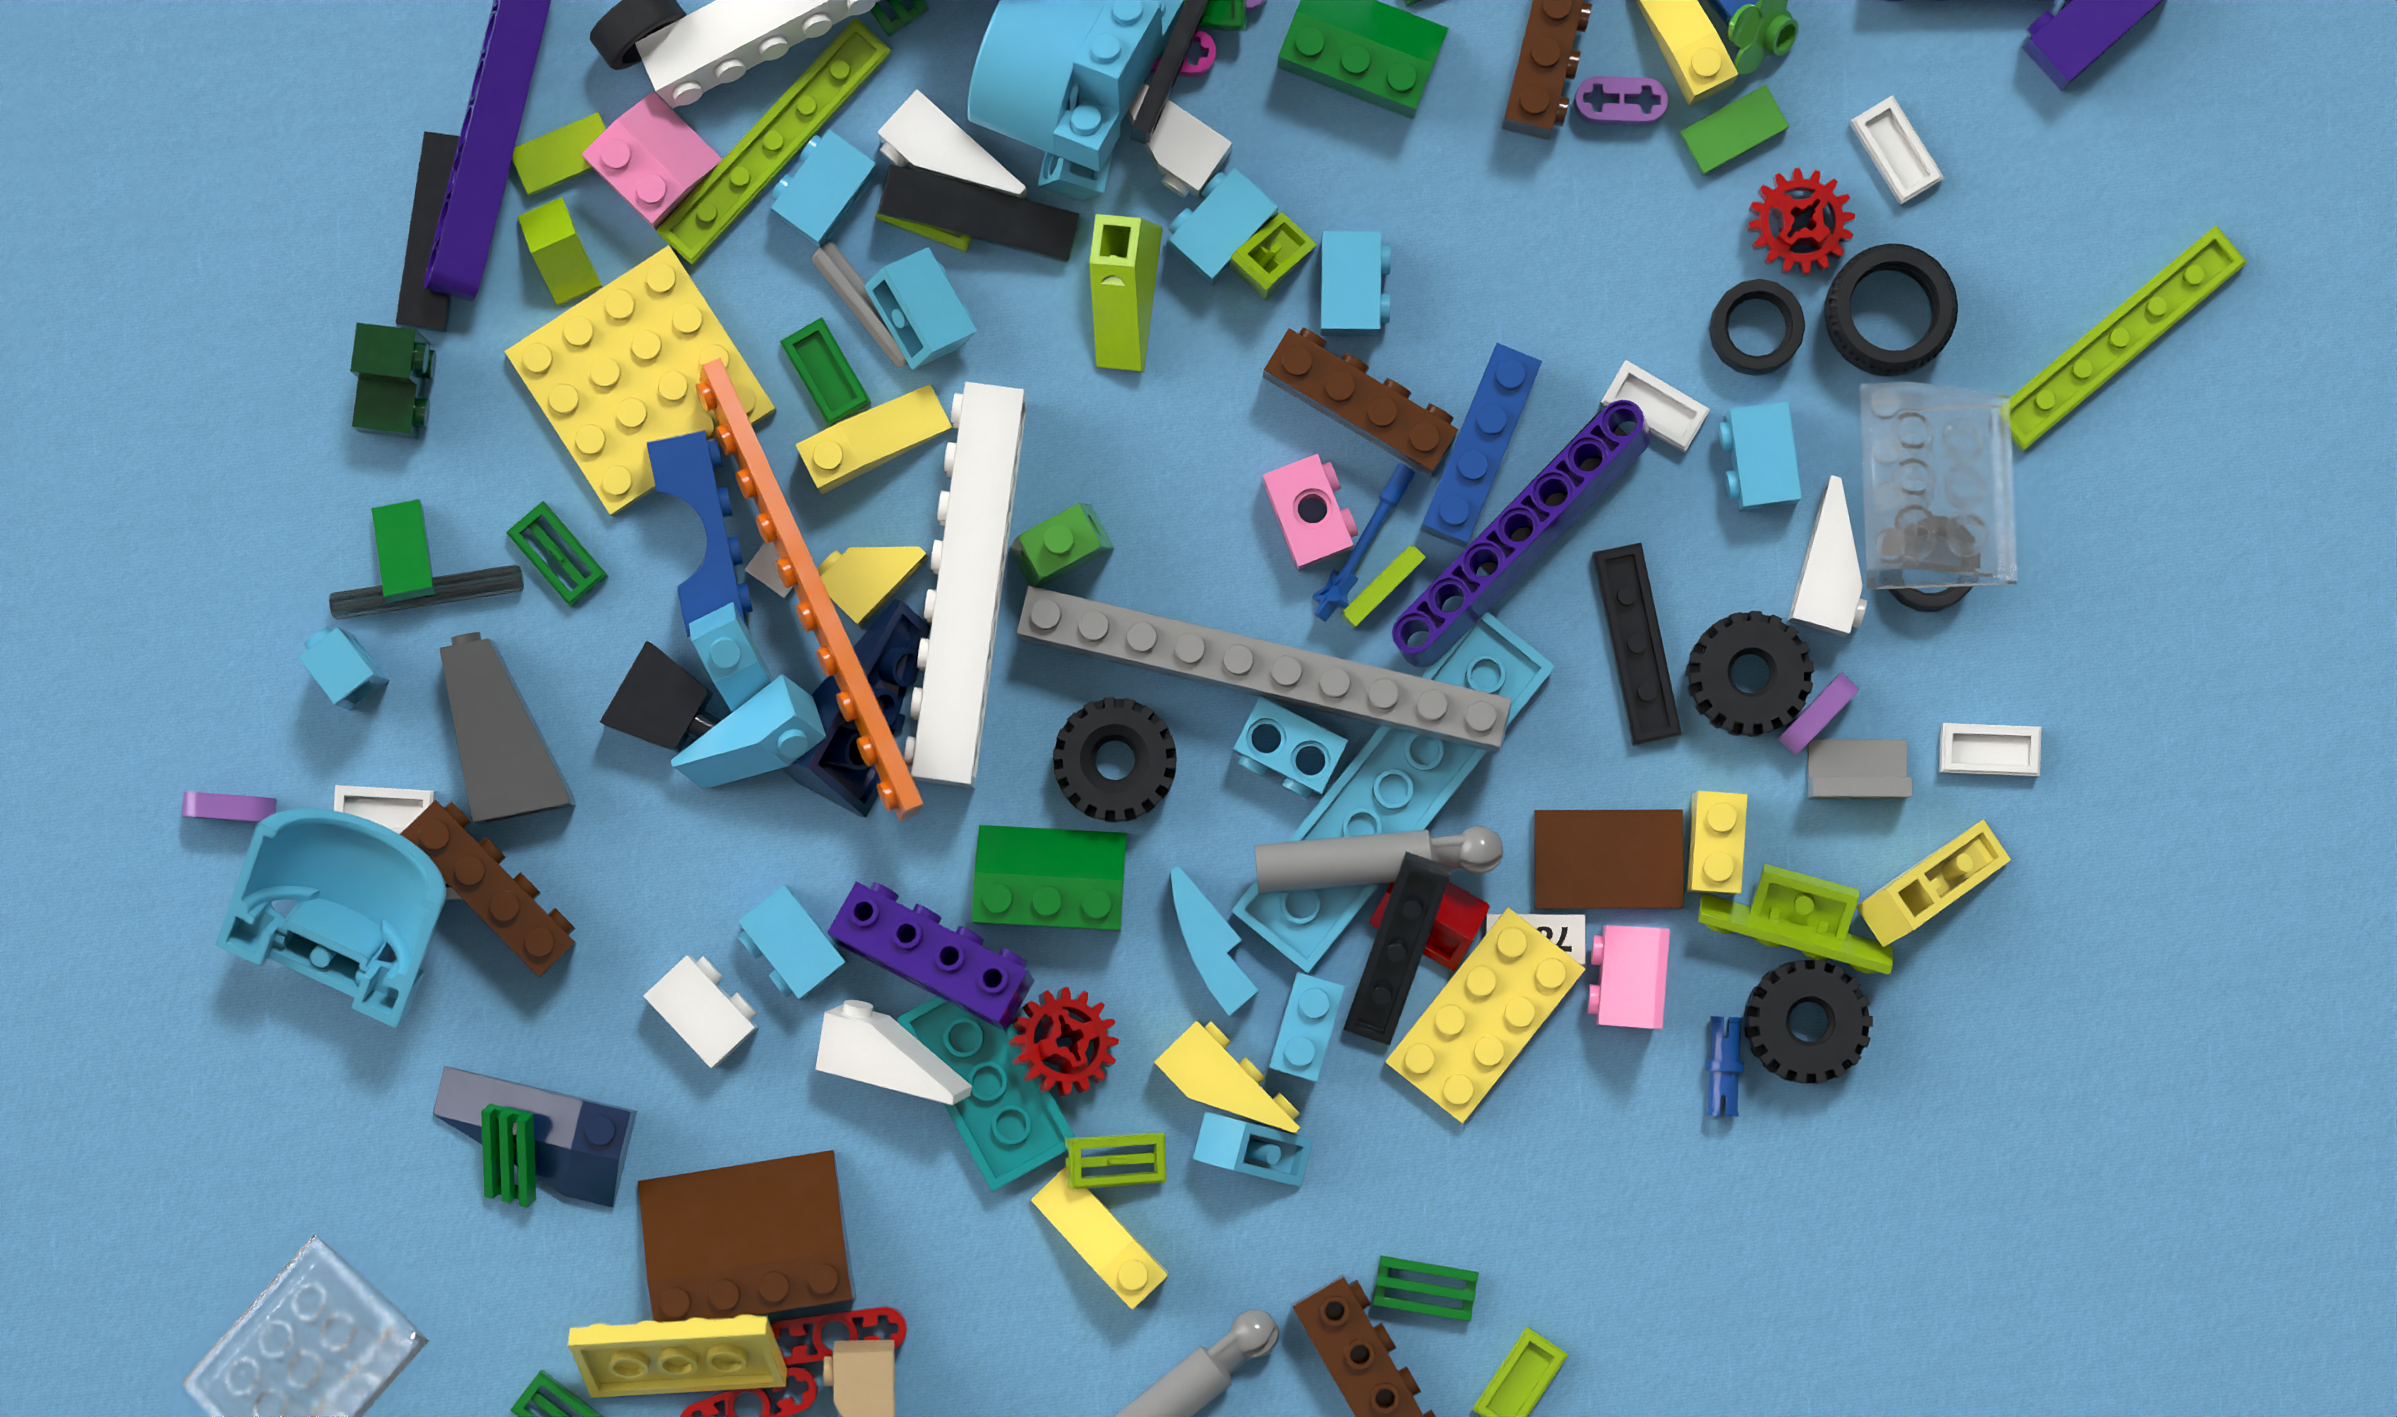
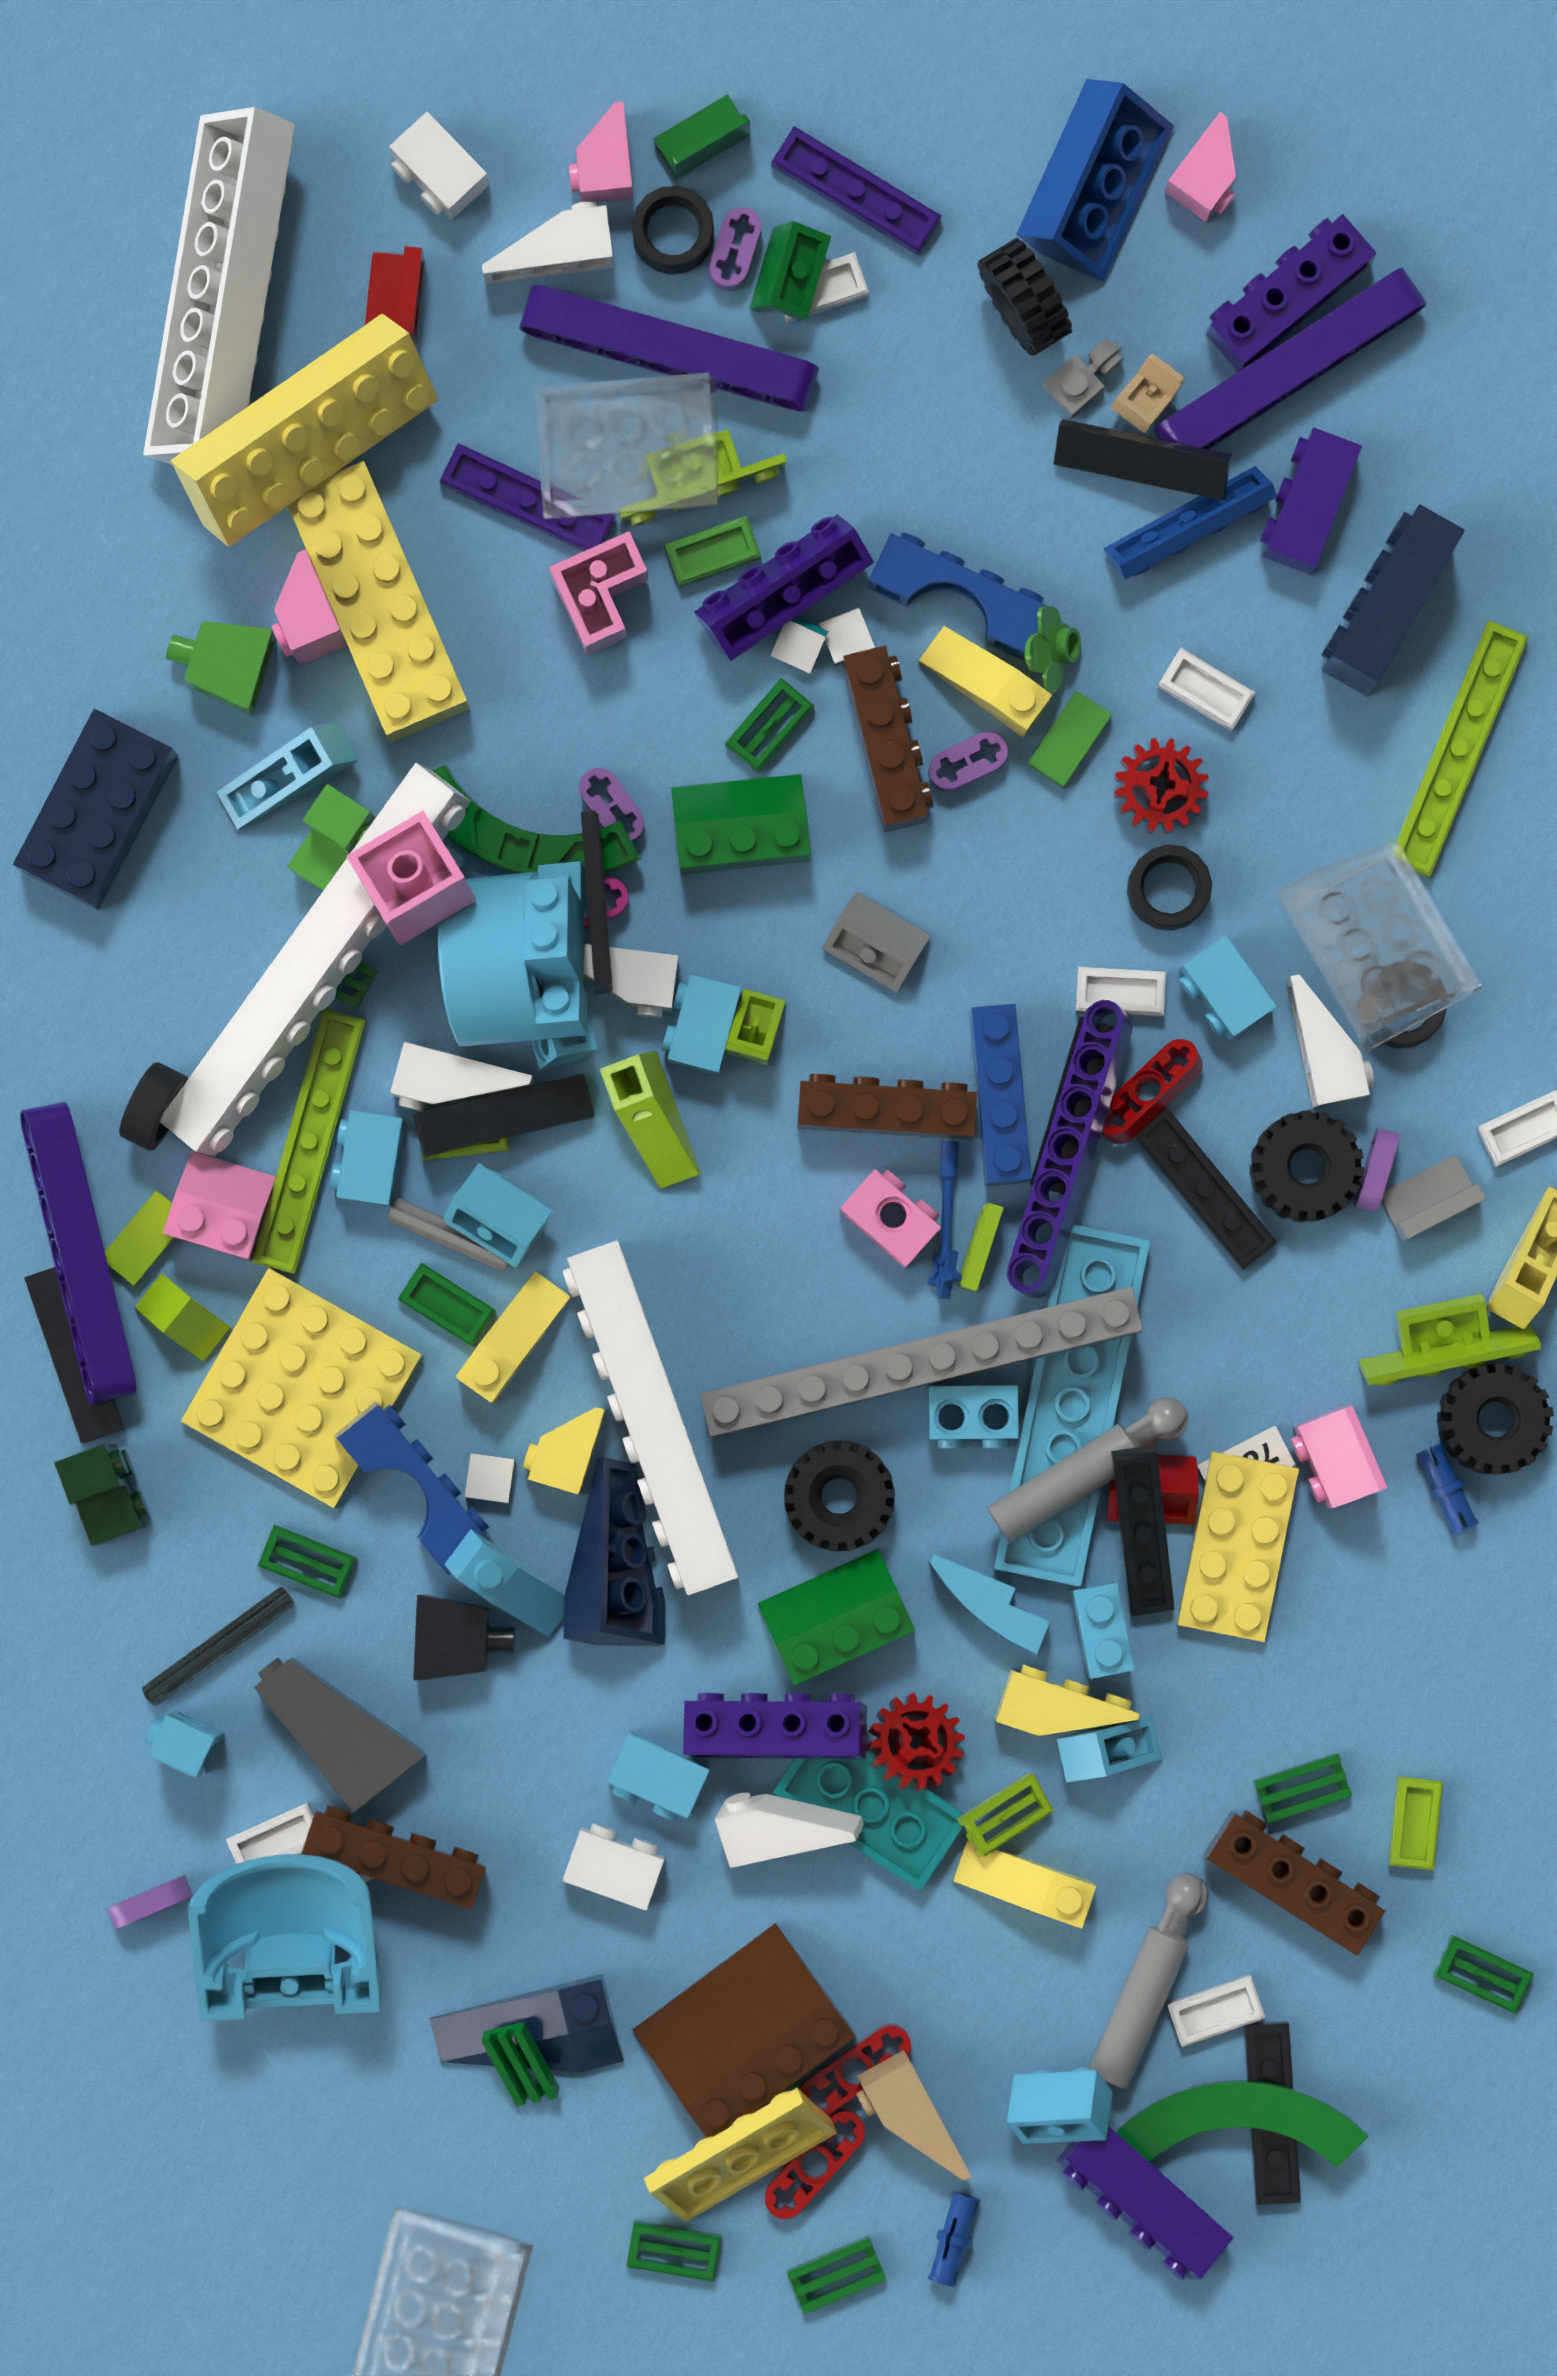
camera: 35 degrees left, 0 degrees up
(403, 551) = (183, 1623): green tile -> none
(755, 738) = (546, 1627): medium azure slope -> none
(815, 606) = (540, 1500): orange plate -> none
(1060, 545) = (707, 1347): bright green torso -> none
(1352, 283) = (830, 1017): medium azure brick -> none
(1436, 231) = (876, 941): none -> light grey panel
(1608, 859) = (1270, 1371): reddish brown tile -> none
(1670, 519) = (1149, 1073): none -> red beam
(1716, 842) = (1350, 1315): light yellow brick -> none
(1927, 274) = (1295, 782): black tyre -> none
(2135, 149) = (1396, 593): none -> dark blue brick

